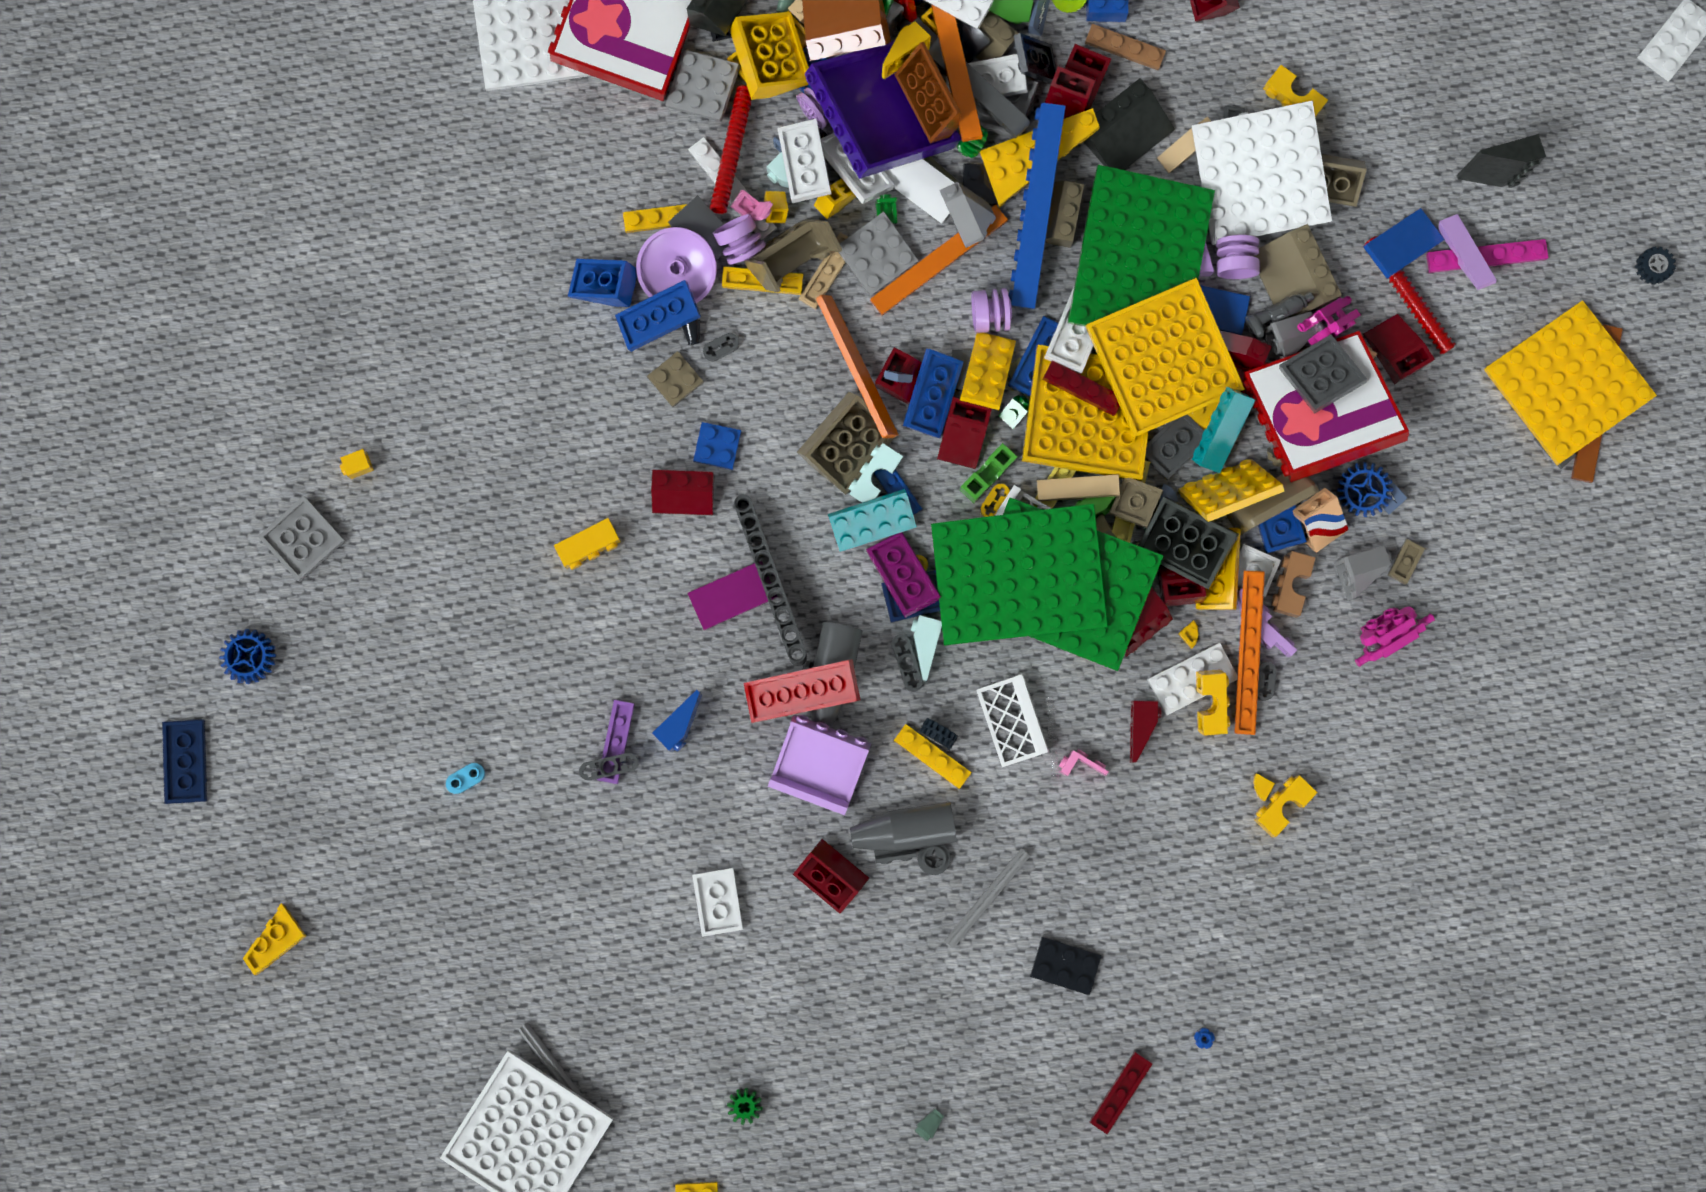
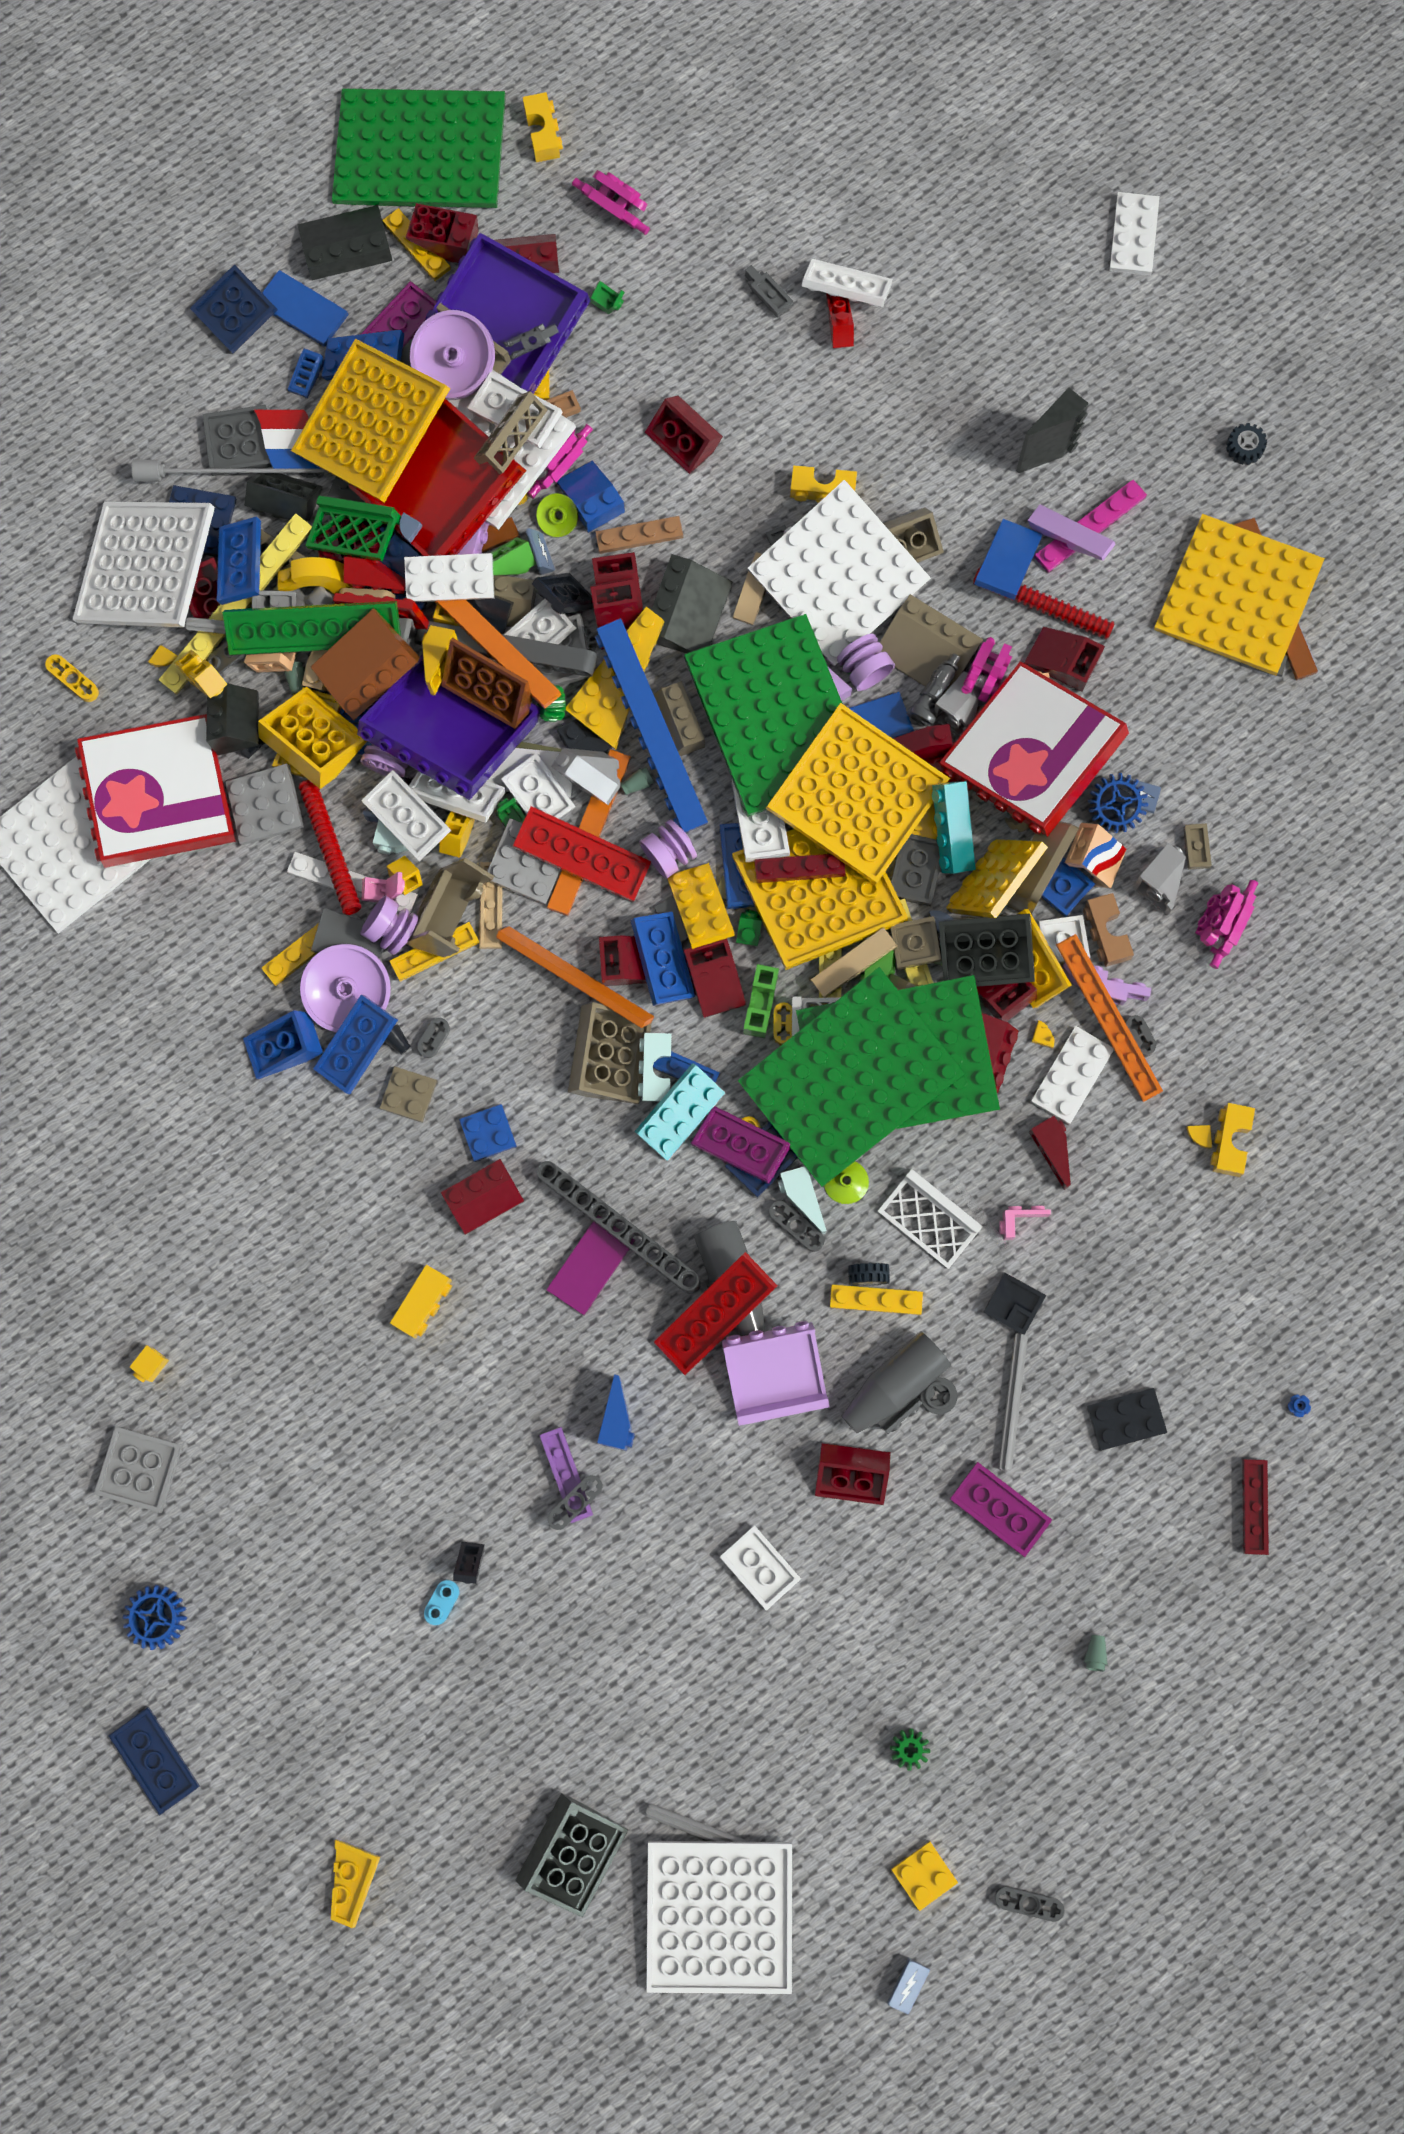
camera: 25 degrees left, 5 degrees down
(446, 1024) = (571, 1855): none -> pearl dark grey slope
(502, 761) = (468, 1562): none -> black tile
(898, 376) = (620, 961): sand blue tile -> none
(918, 205) = (537, 787): none -> white plate
(921, 273) = (581, 854): none -> red plate
(926, 972) = (1001, 1509): none -> magenta plate
(967, 663) = (851, 1192): none -> lime dish
(1002, 243) = (637, 781): none -> sand green cone
(1035, 825) = (1014, 1303): none -> black plate
(1215, 719) = (1117, 1098): yellow arch -> none
(1322, 373) = (1013, 719): dark grey plate -> none

